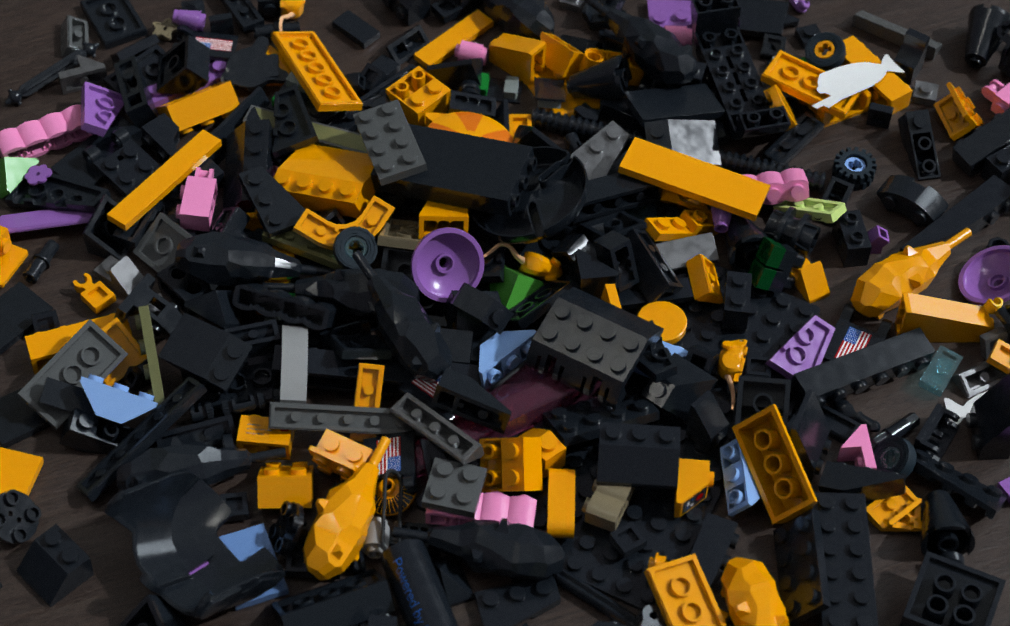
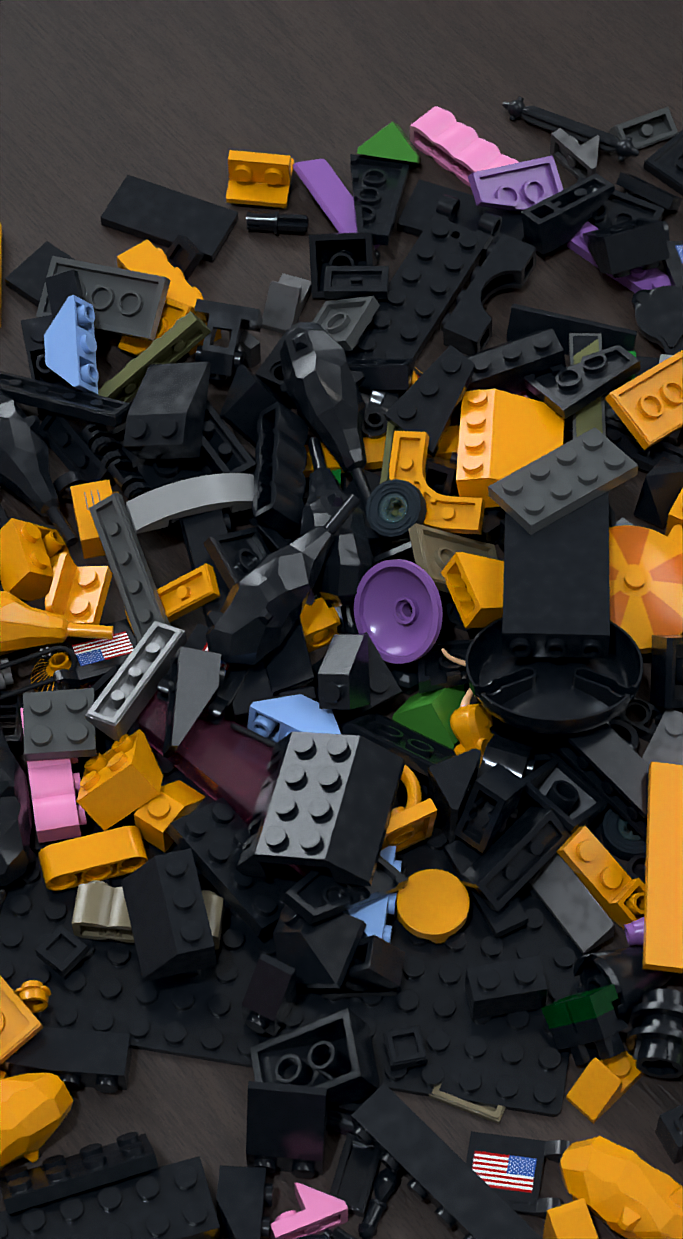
camera: 75 degrees right, 5 degrees up
(38, 174) = (392, 167): medium lavender plant -> none
(96, 295) = (247, 288): light orange plate -> none
(164, 180) = (427, 283): light orange tile -> none
(198, 201) = (414, 328): bright pink brick -> none
(201, 106) = (580, 285): light orange slope -> none
(692, 485) = (168, 1003): light orange slope -> none
(704, 280) = (541, 935): light orange slope -> none
(731, 363) = (398, 1007): light orange animal -> none
(738, 481) = (201, 1066): light blue slope -> none
(775, 465) = (216, 1094): light orange slope -> none
(803, 349) = (457, 1101): medium lavender wing -> none

